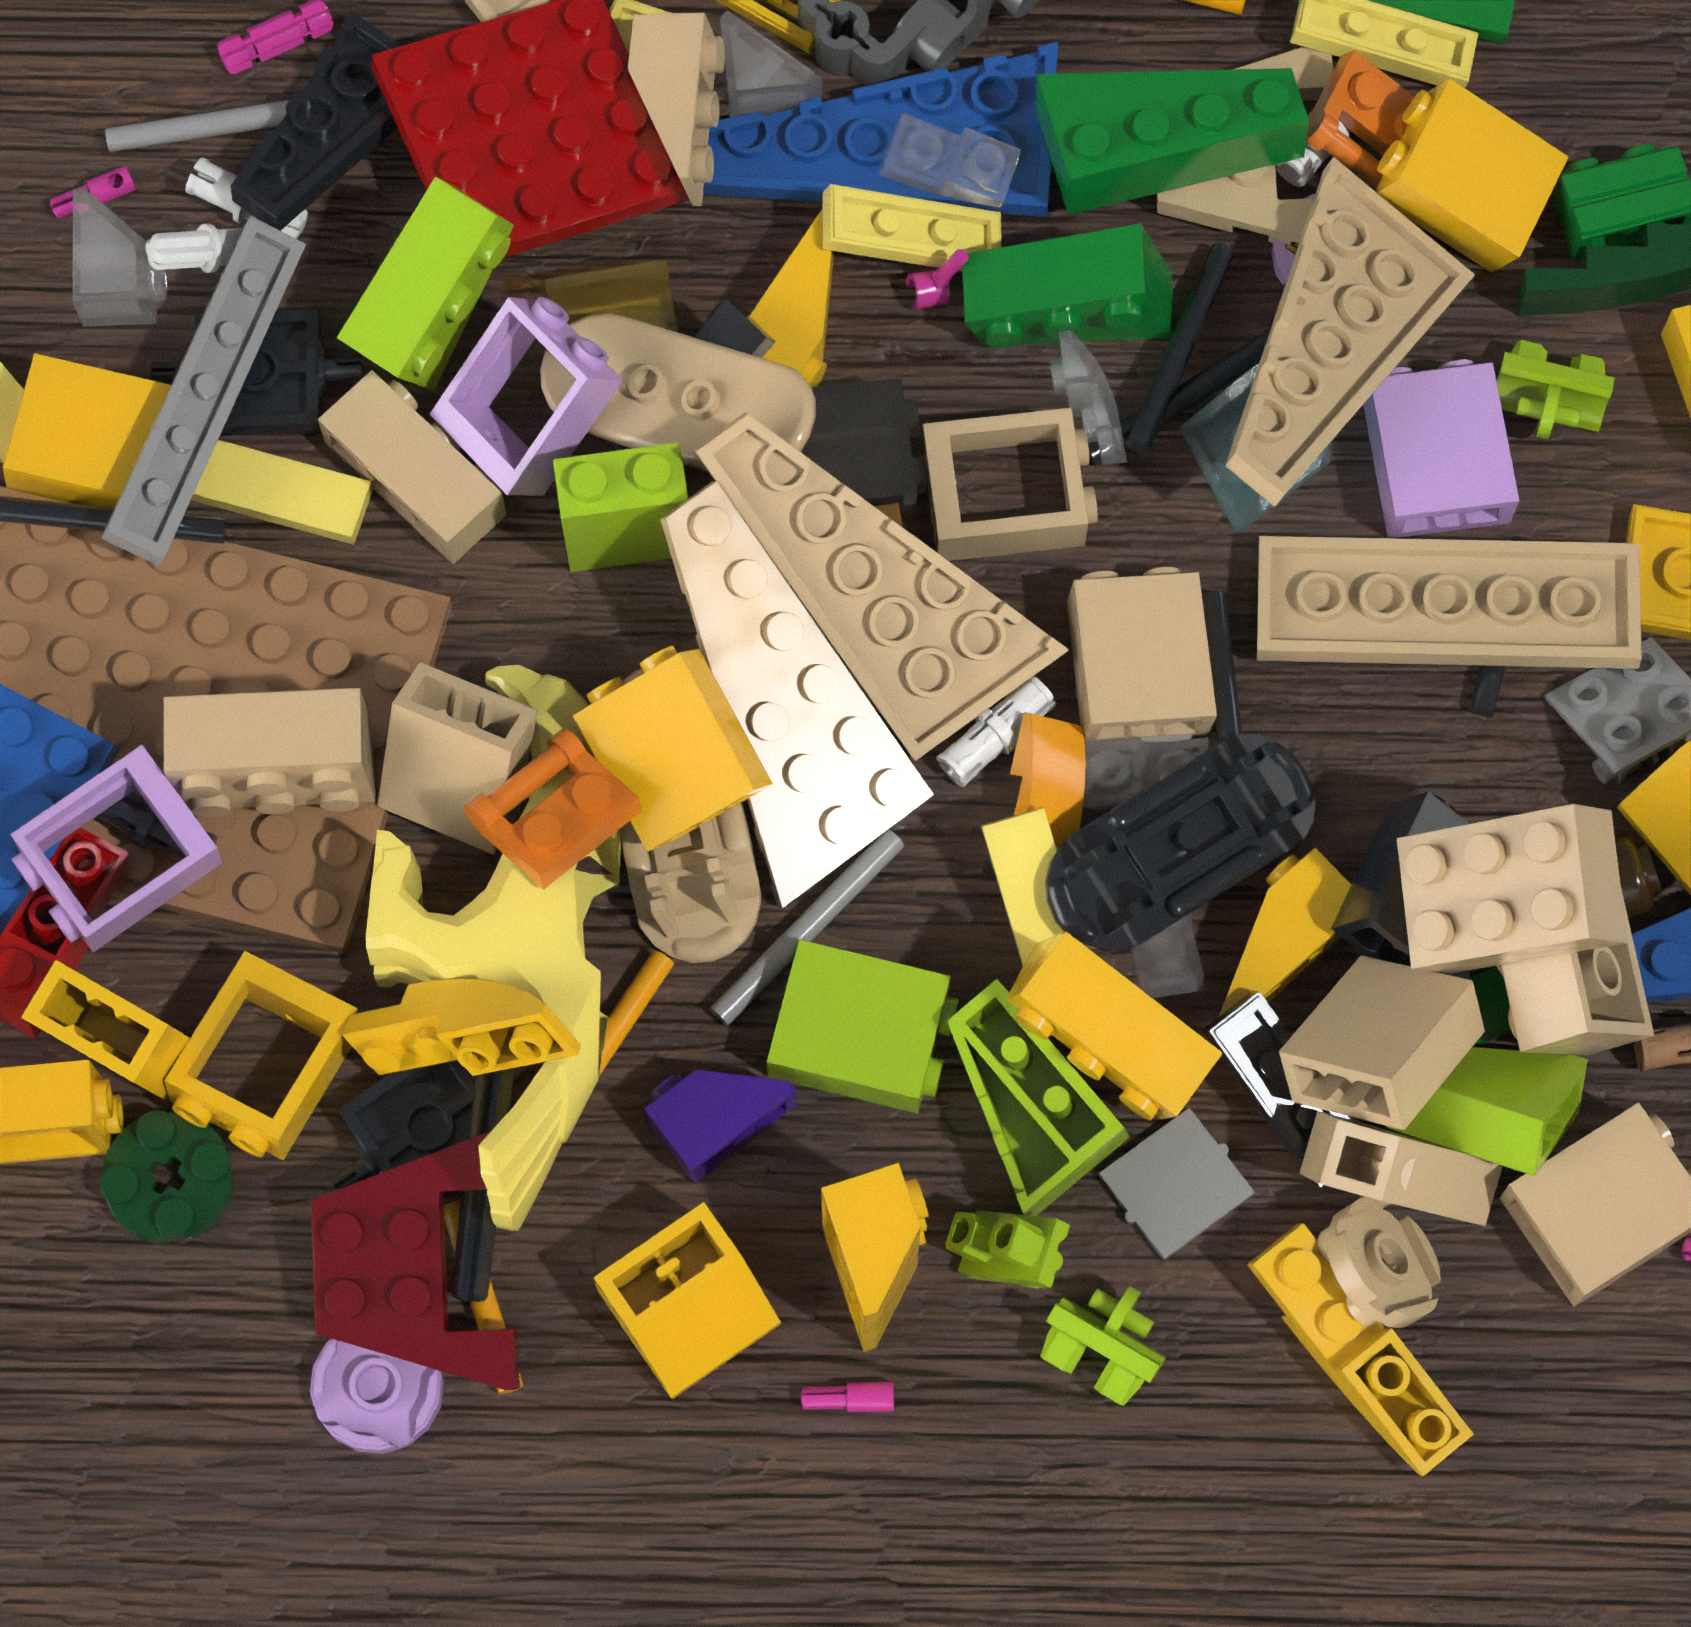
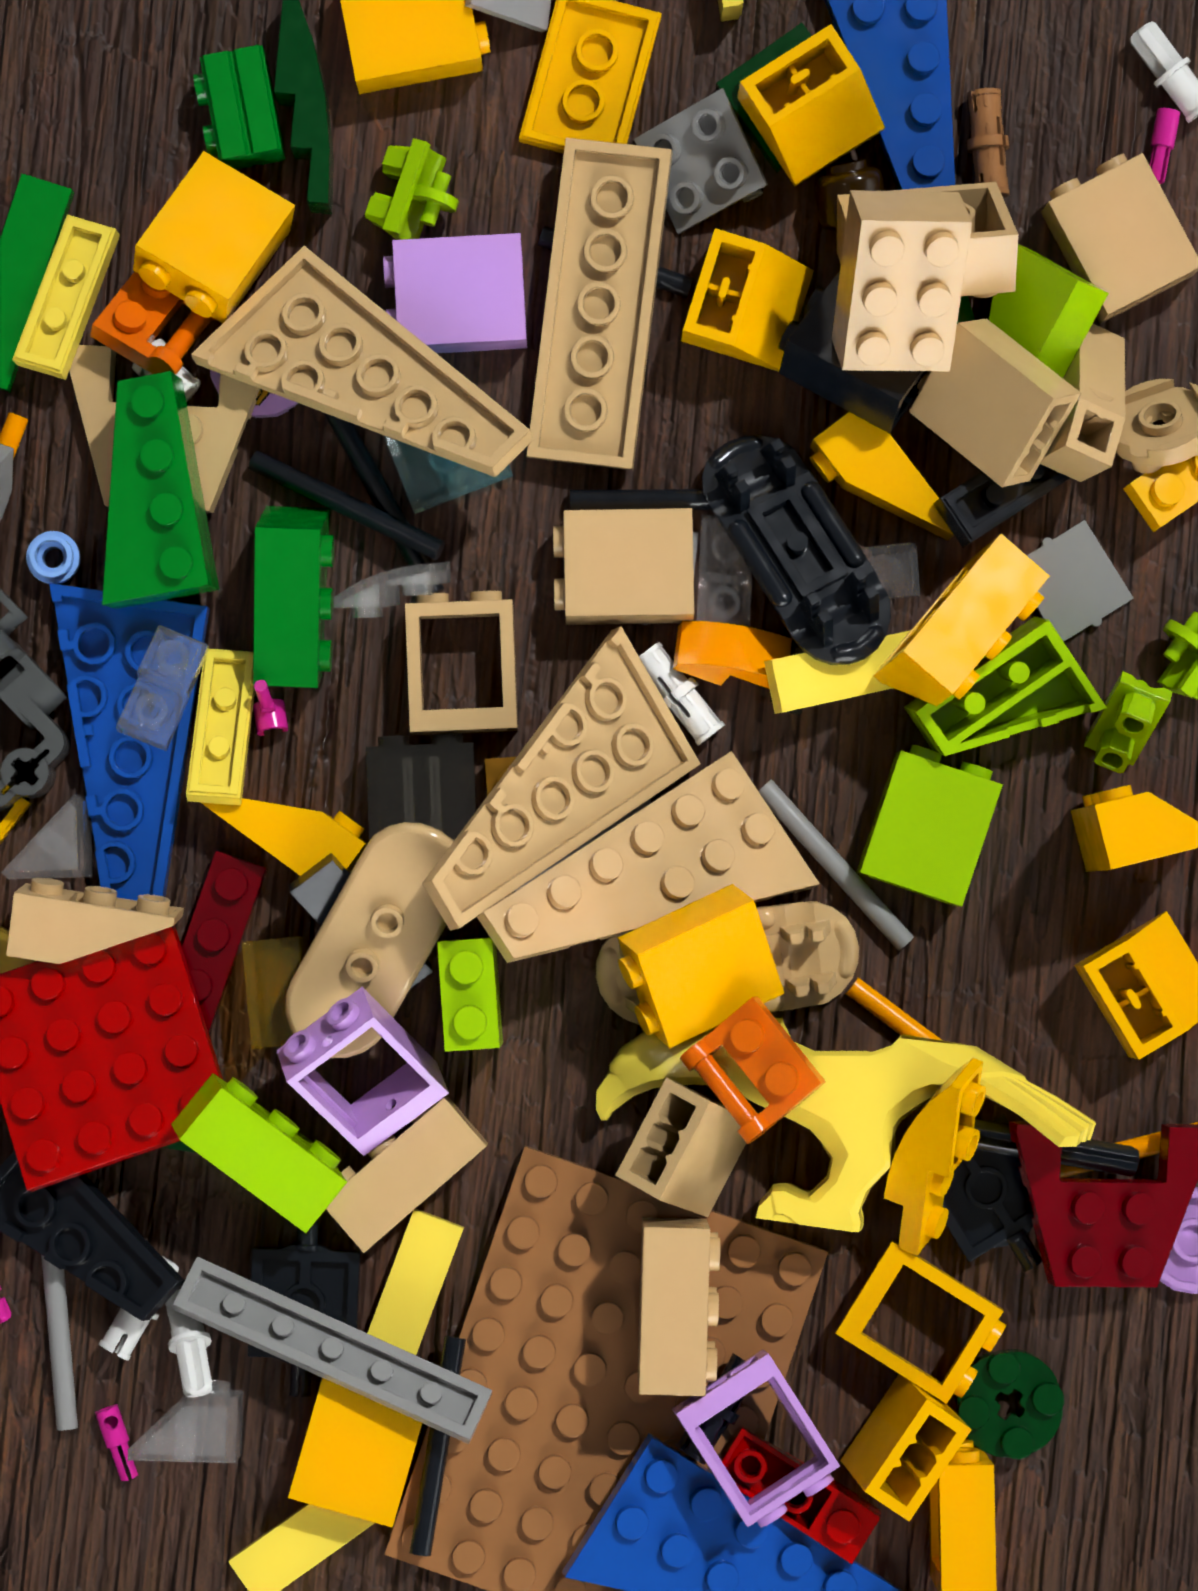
camera: 90 degrees left, 15 degrees up
(695, 253) = (220, 927): none -> dark red plate
(714, 1115) = (995, 954): dark purple slope -> none
(1088, 34) = (41, 546): none -> light blue plate
(1476, 751) = (745, 300): none -> yellow slope

